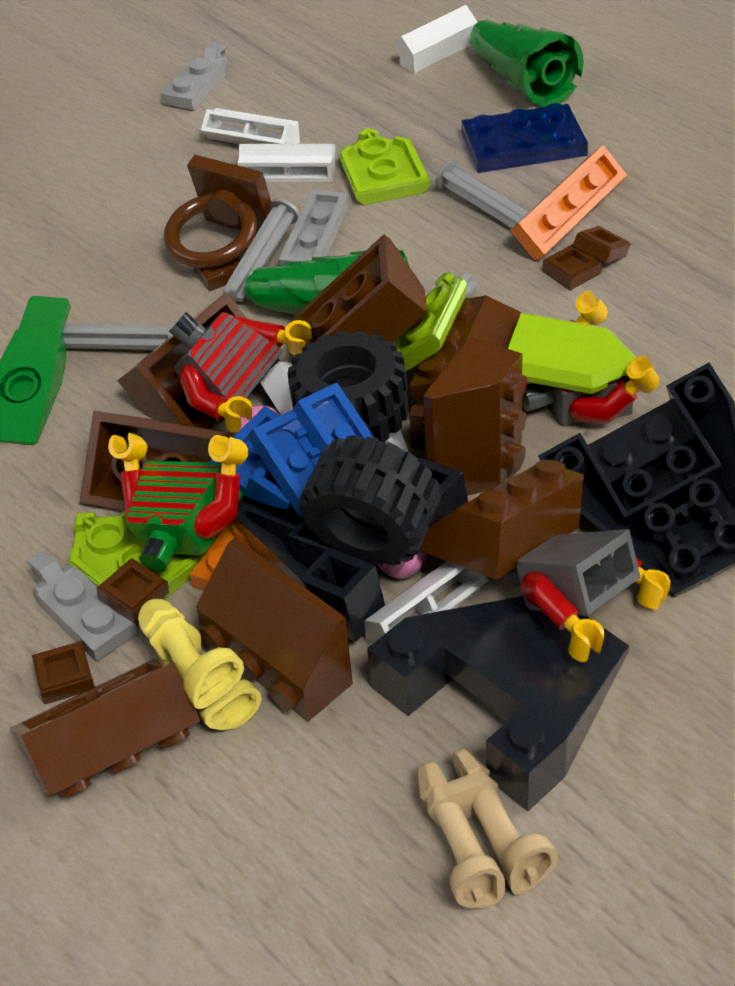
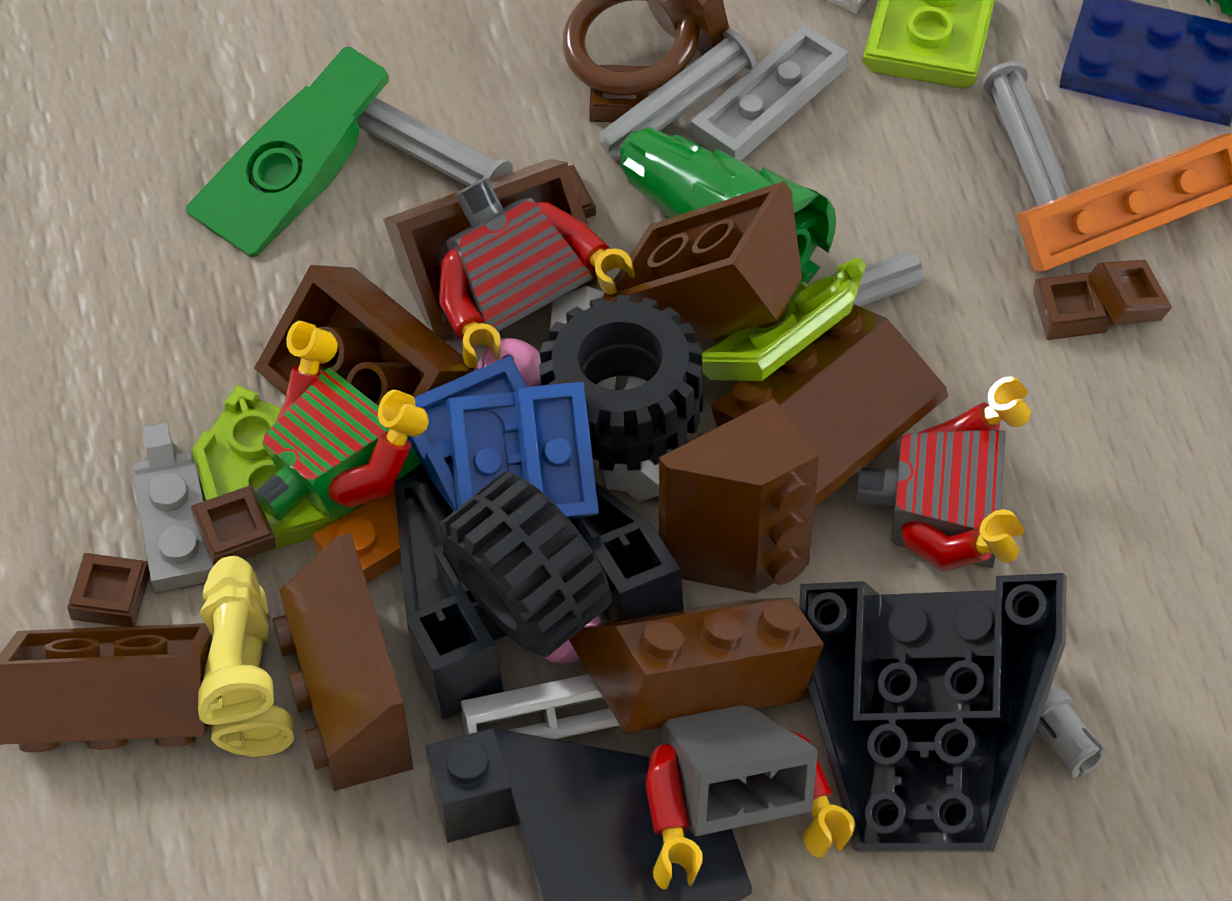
camera: 25 degrees right, 10 degrees up
(569, 353) = (932, 454): lime tile -> none

